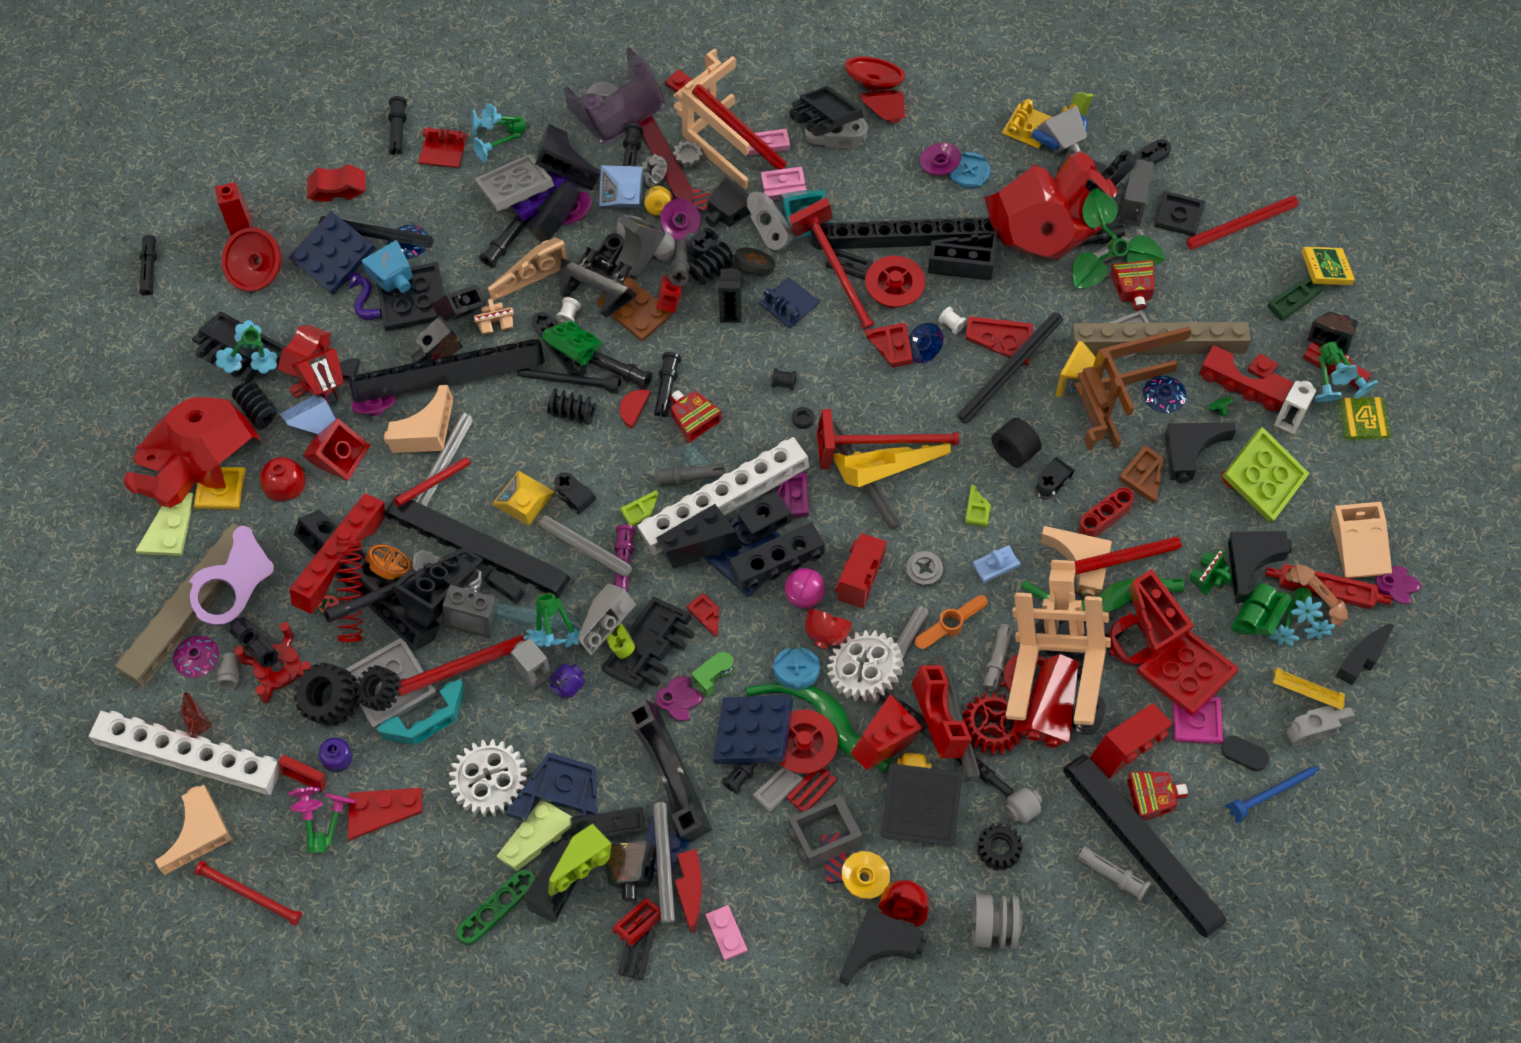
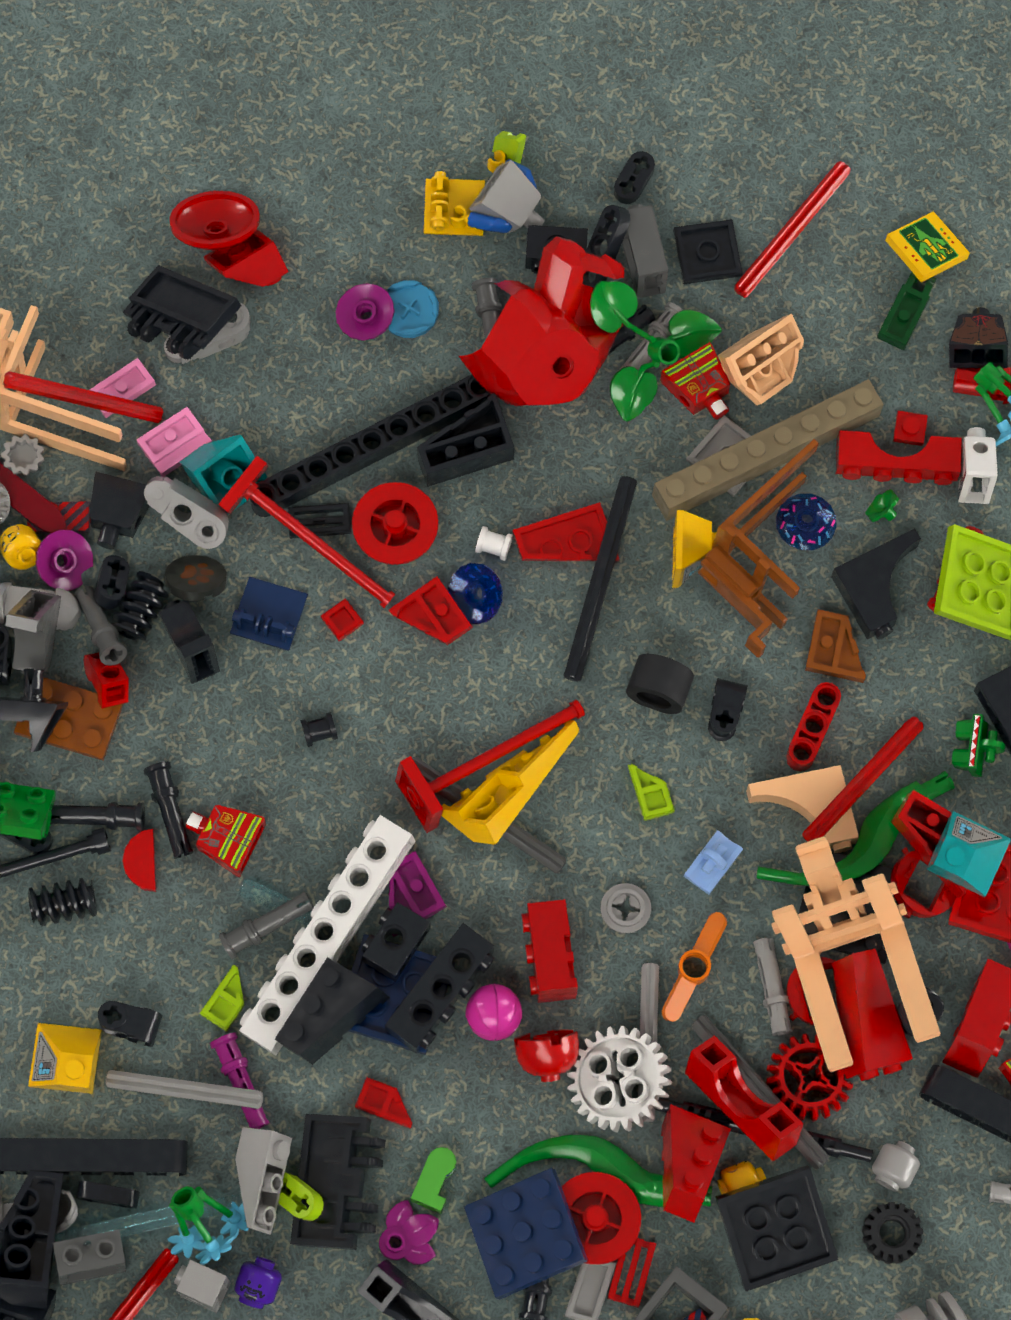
camera: 30 degrees left, 10 degrees up
(796, 668) = (534, 1122): dark azure tile -> none
(803, 417) = (369, 771): black tile -> none
(833, 325) = (342, 619): none -> red tile
(1169, 624) = (968, 854): none -> teal slope
(1184, 284) = (764, 359): none -> light nougat wedge

